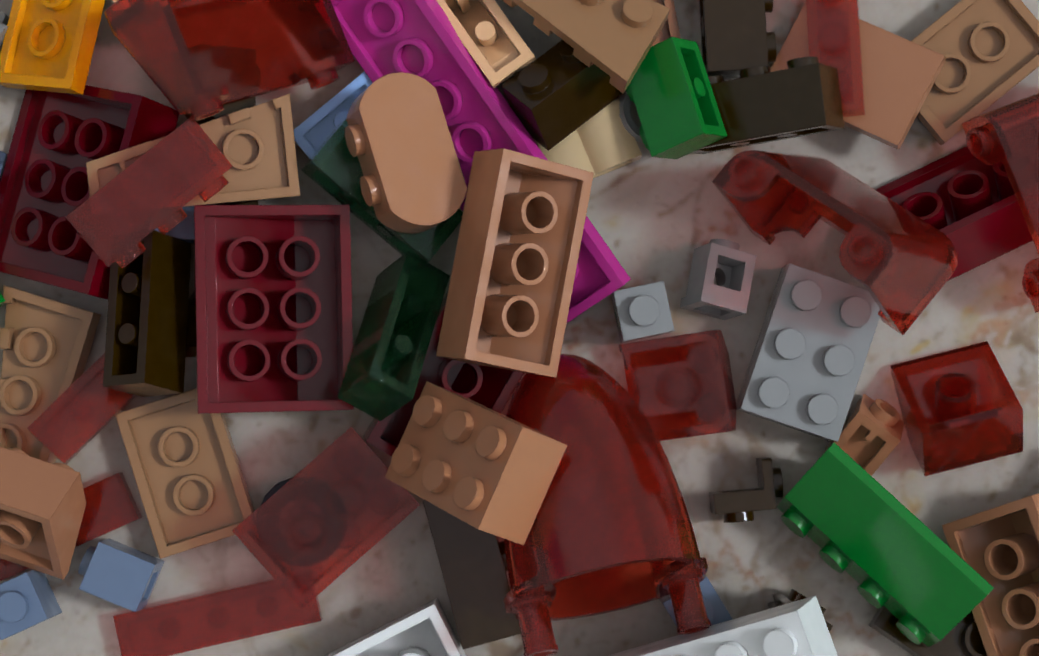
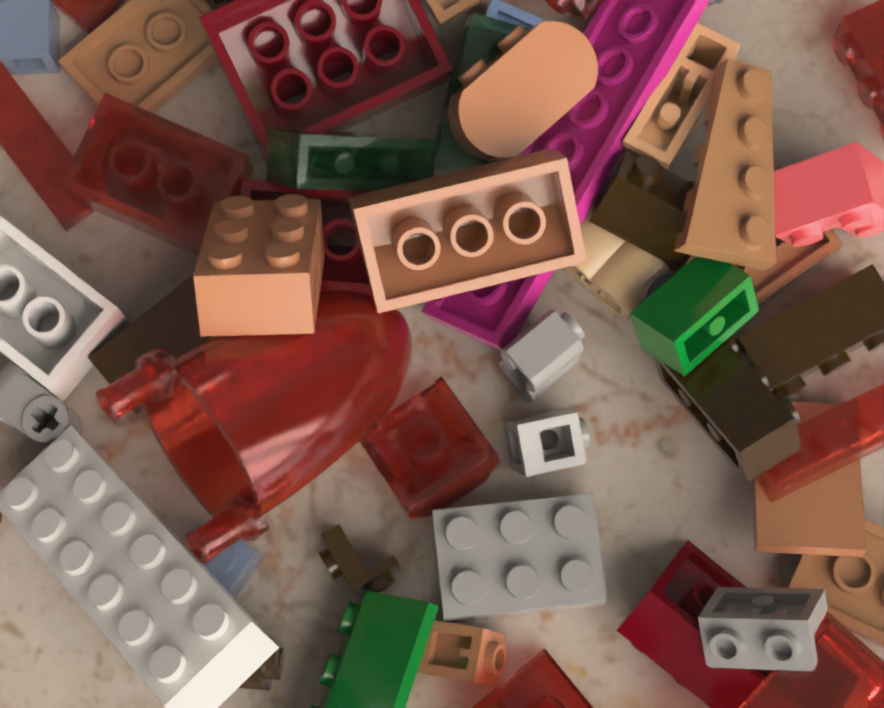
camera: 60 degrees right, 10 degrees down
(642, 312) = (482, 382): light grey brick -> none
(646, 246) = (542, 354): none -> light grey brick
(884, 246) = (653, 542): clear red windscreen -> none
(975, 177) = (762, 628): none -> light grey bracket

